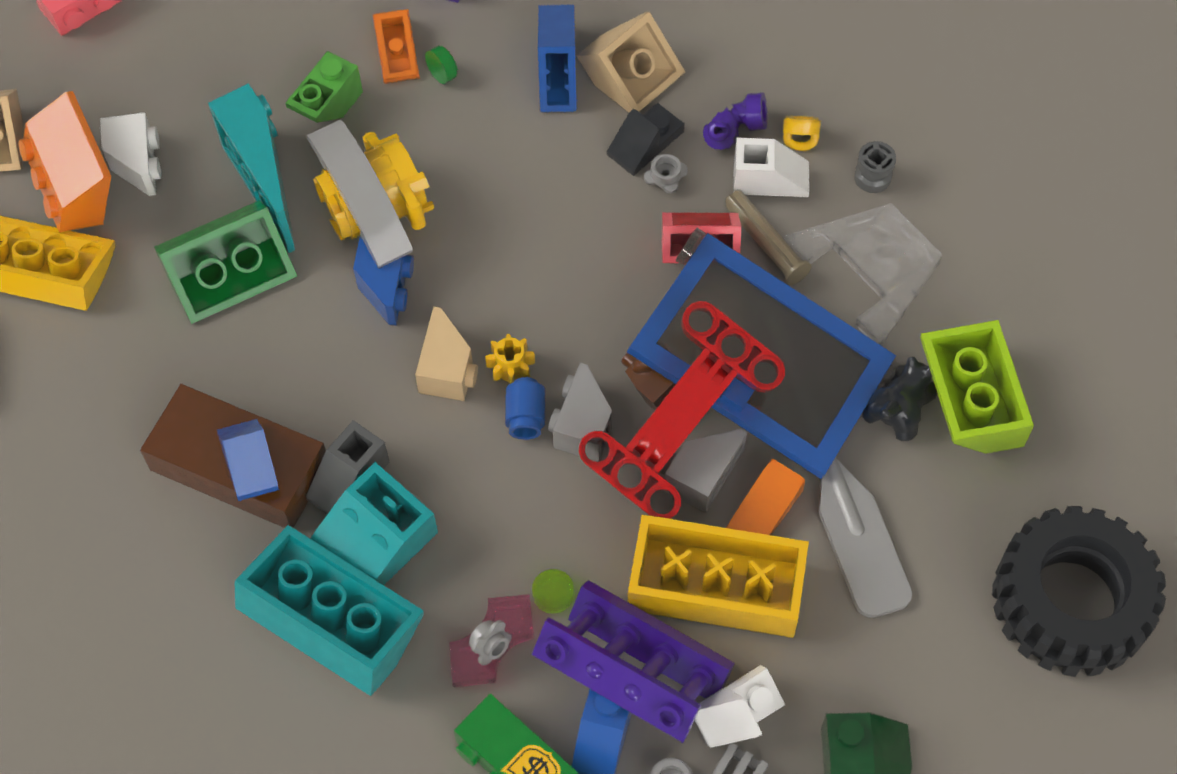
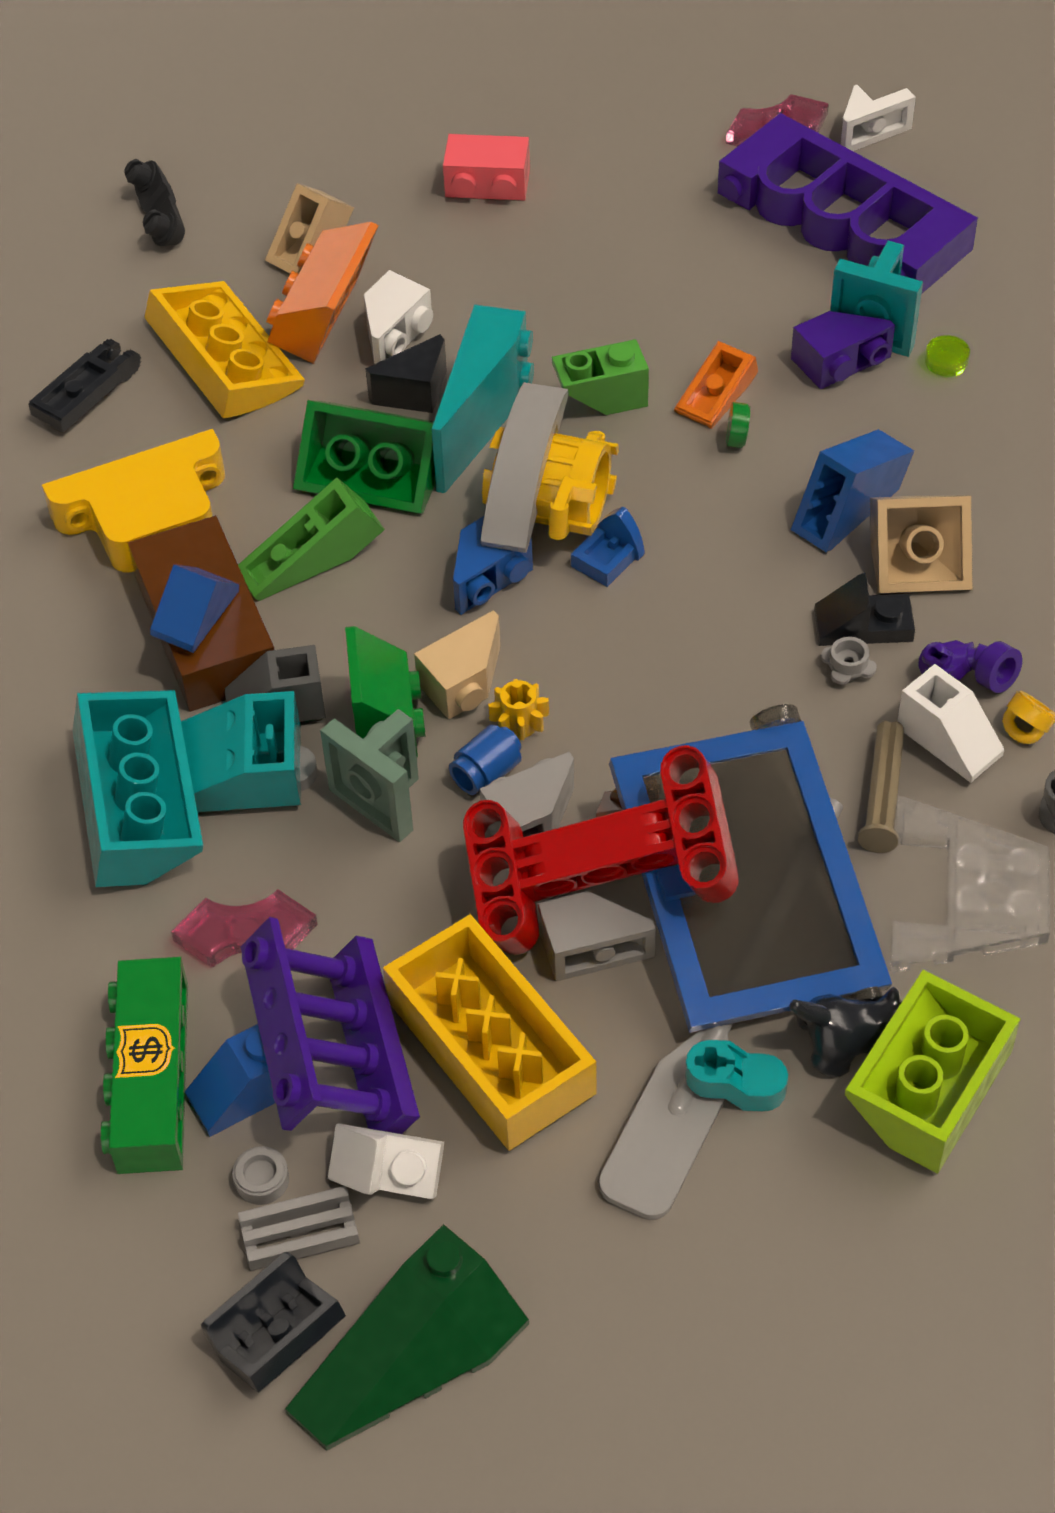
camera: 45 degrees right, 10 degrees down
(101, 412) = (139, 494): none -> yellow brick
(192, 186) = (410, 377): none -> black slope
(254, 350) = (312, 541): none -> bright green slope
(422, 422) = (380, 682): none -> green slope
(449, 210) = (609, 548): none -> blue tile
(475, 477) = (374, 771): none -> sand green bracket
(489, 640) = (230, 917): light grey plate -> none
(553, 591) = (338, 927): clear neon green tile -> none
(680, 226) = (834, 739): coral brick -> none
(768, 500) = (618, 1014): orange slope -> none
(872, 482) = (730, 1073): none -> teal piece
(1103, 548) = (839, 1270): black tyre -> none

